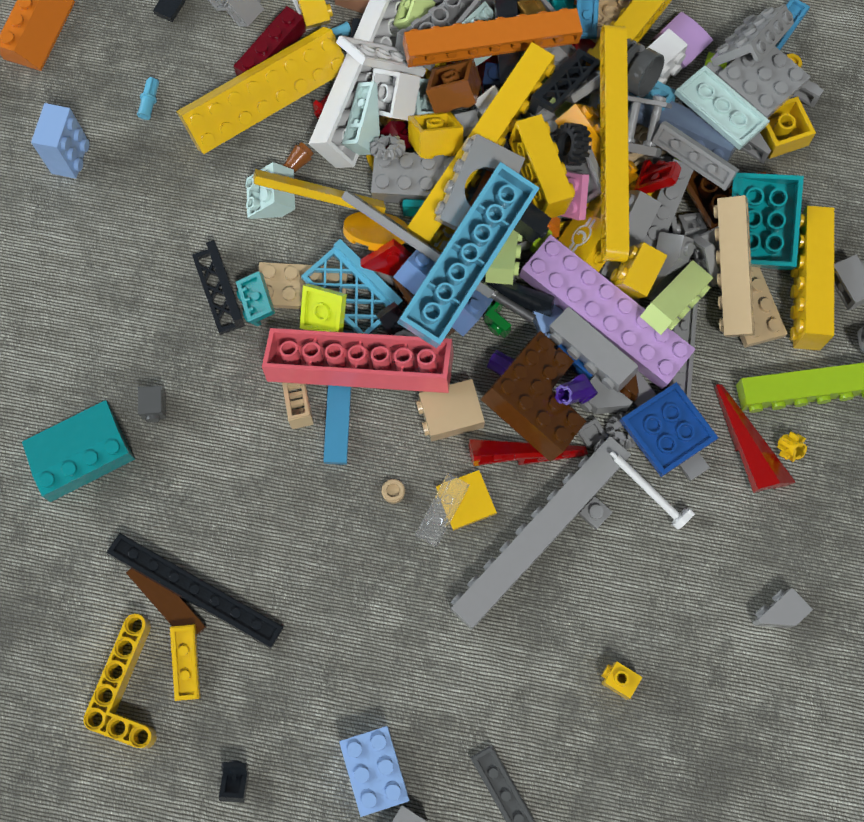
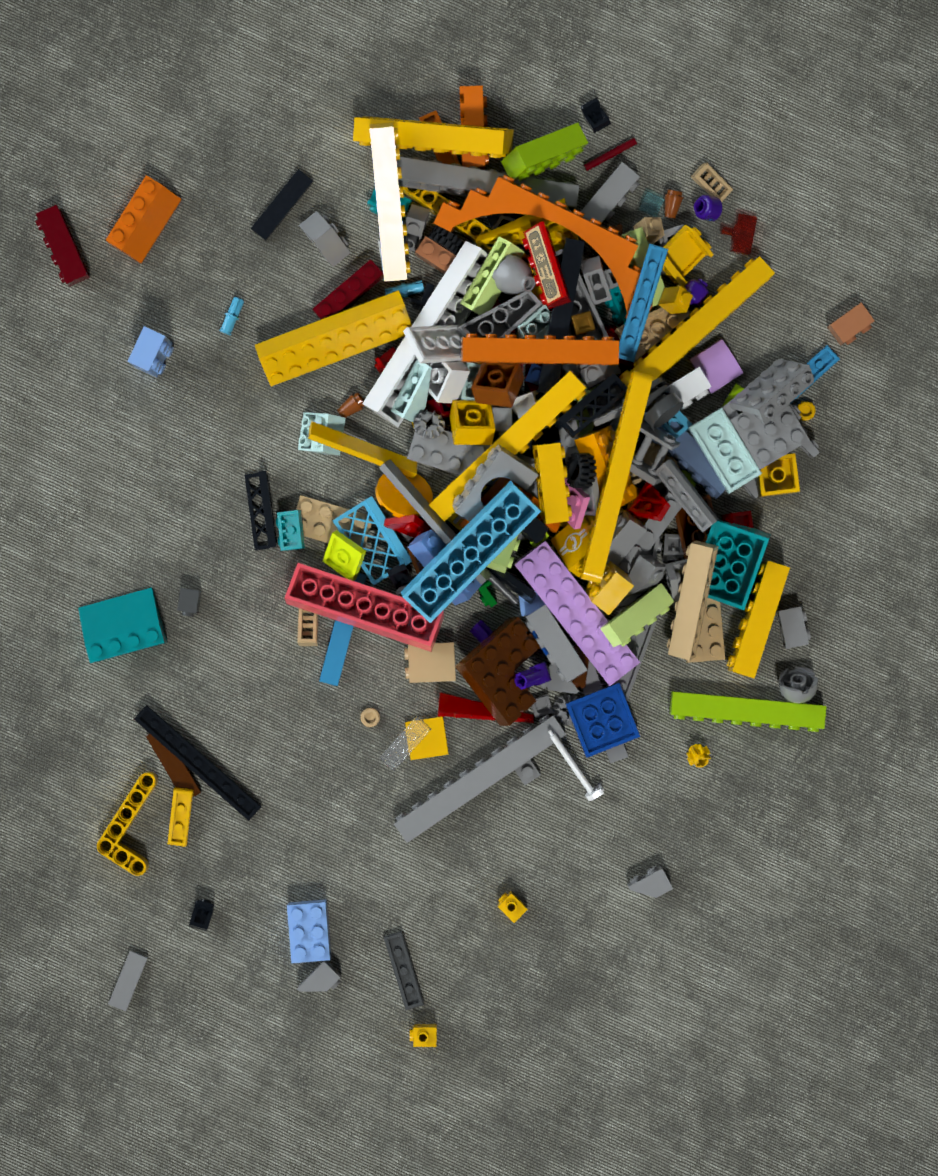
camera: 10 degrees right, 15 degrees up
(411, 207) = (440, 476): teal tile -> none
(759, 460) = (670, 759): red wedge -> none

